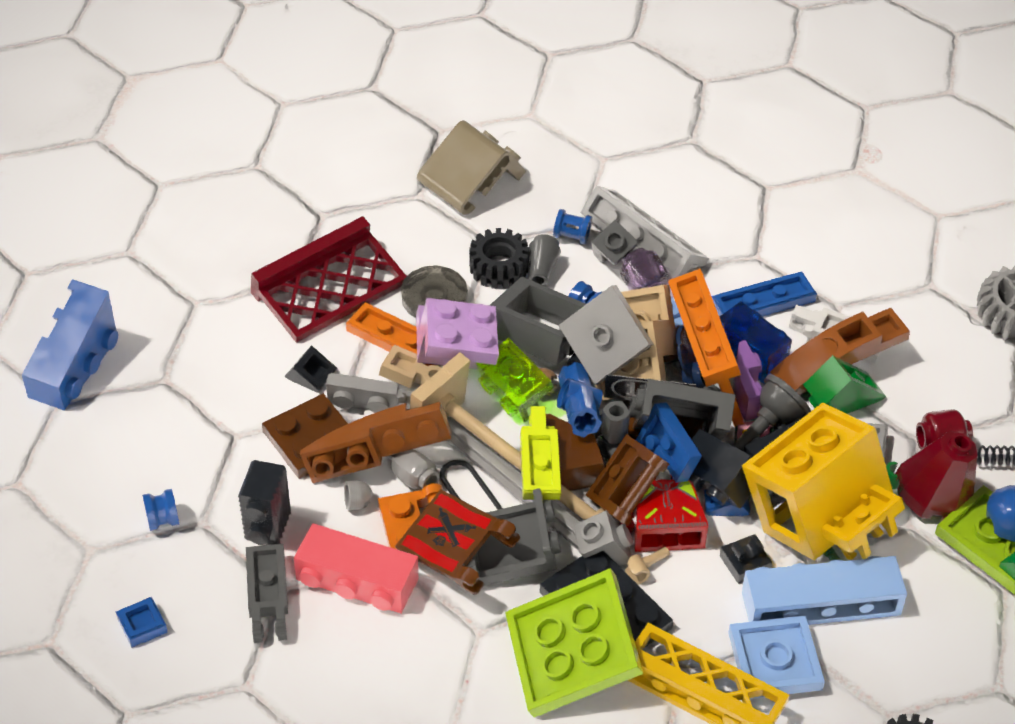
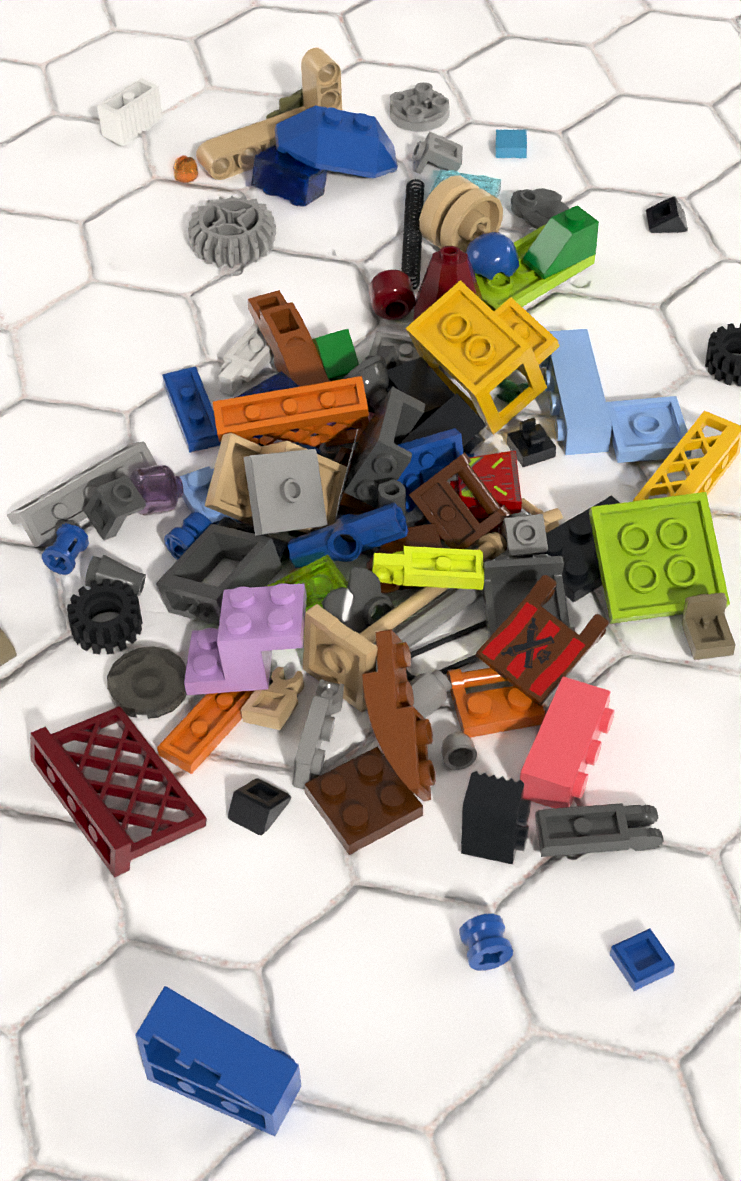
camera: 85 degrees left, 0 degrees up
(493, 688) = (707, 626): none -> dark tan bracket
(505, 412) = (356, 602): none -> dark grey plate

